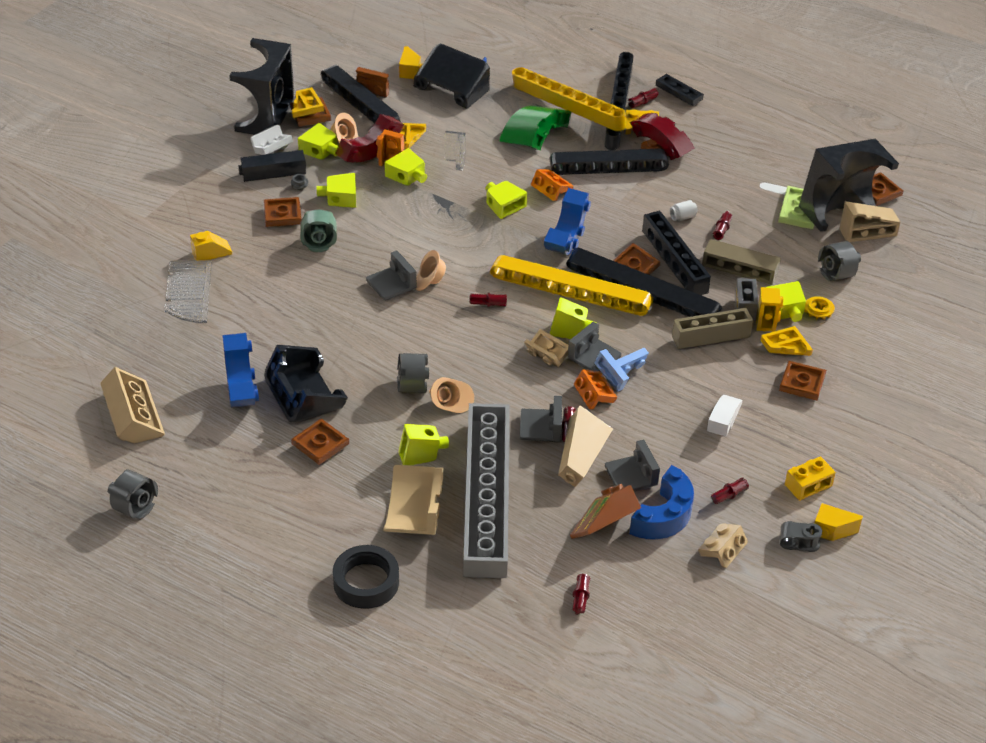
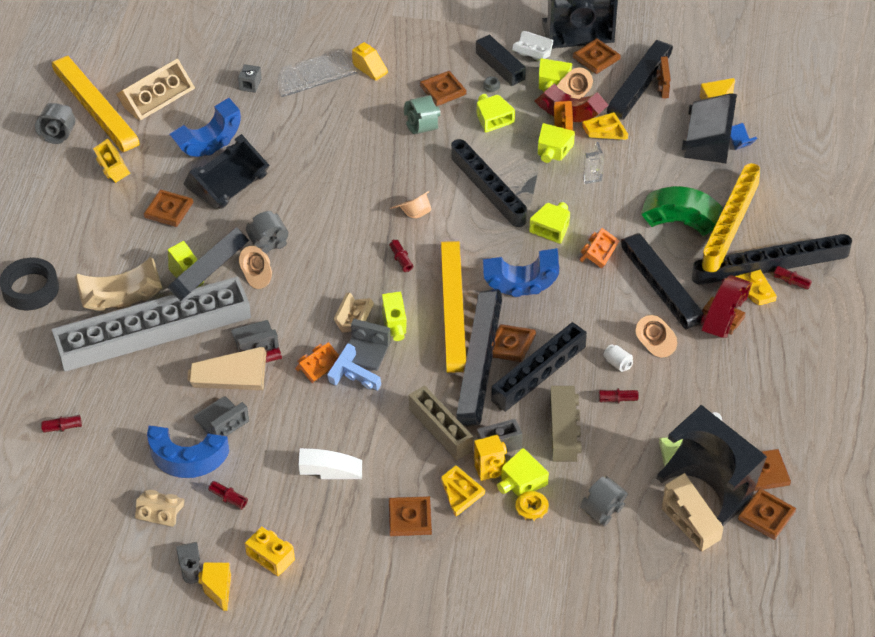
camera: 70 degrees right, 5 degrees up
(113, 460) = (95, 104): none -> yellow beam
(169, 333) = (249, 78): none -> dark grey brick
(225, 463) = (111, 161): none -> yellow brick
(306, 103) = (596, 46): yellow wing -> none
(394, 280) = (392, 185): dark grey bracket -> none
(430, 219) = (489, 183): none -> black beam
(442, 418) = (208, 264): none -> beam
(609, 507) = (154, 409): dark orange slope -> none
(673, 181) = (656, 336): none -> light nougat piece
(679, 89) = (828, 302): black plate -> none

